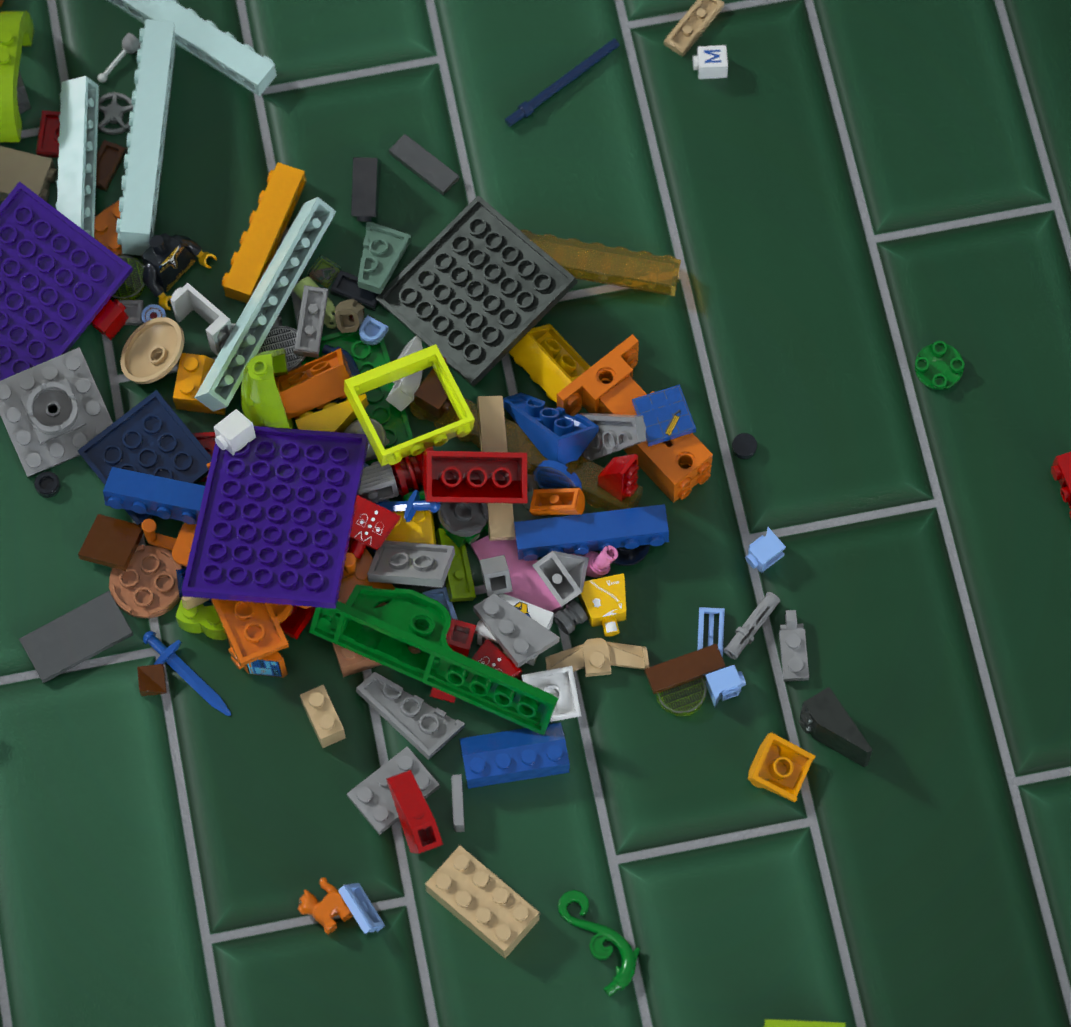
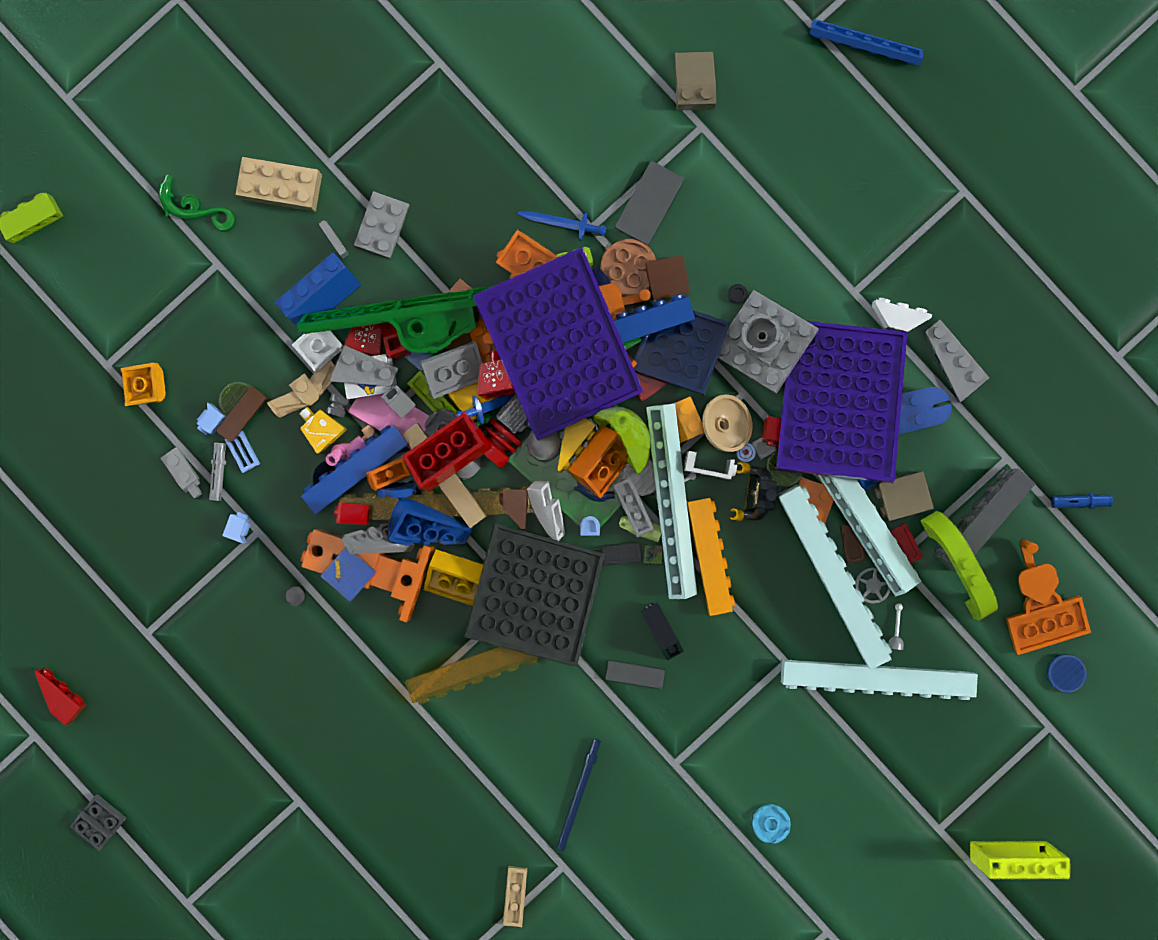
camera: 145 degrees right, 20 degrees up
(152, 680) = (581, 203): reddish brown slope -> none
(234, 432) = (626, 386): white brick -> none
(322, 716) = (454, 243): tan brick -> none
(326, 909) = (374, 122): orange animal -> none
(349, 315) = (611, 528): dark tan rock -> none
(361, 908) = (352, 135): light blue tile -> none
(380, 256) = (620, 588): sand green wing -> none
(396, 370) = (487, 464): neon yellow window -> none
(414, 813) = (353, 211): red slope -> none
(416, 721) = (396, 278): light grey wing -> none
(563, 574) = (353, 426): light grey slope -> none
(711, 62) = (483, 871): white brick -> none
(833, 727) = (131, 433): pearl dark grey slope -> none
(939, 366) = (198, 731): green dish -> none

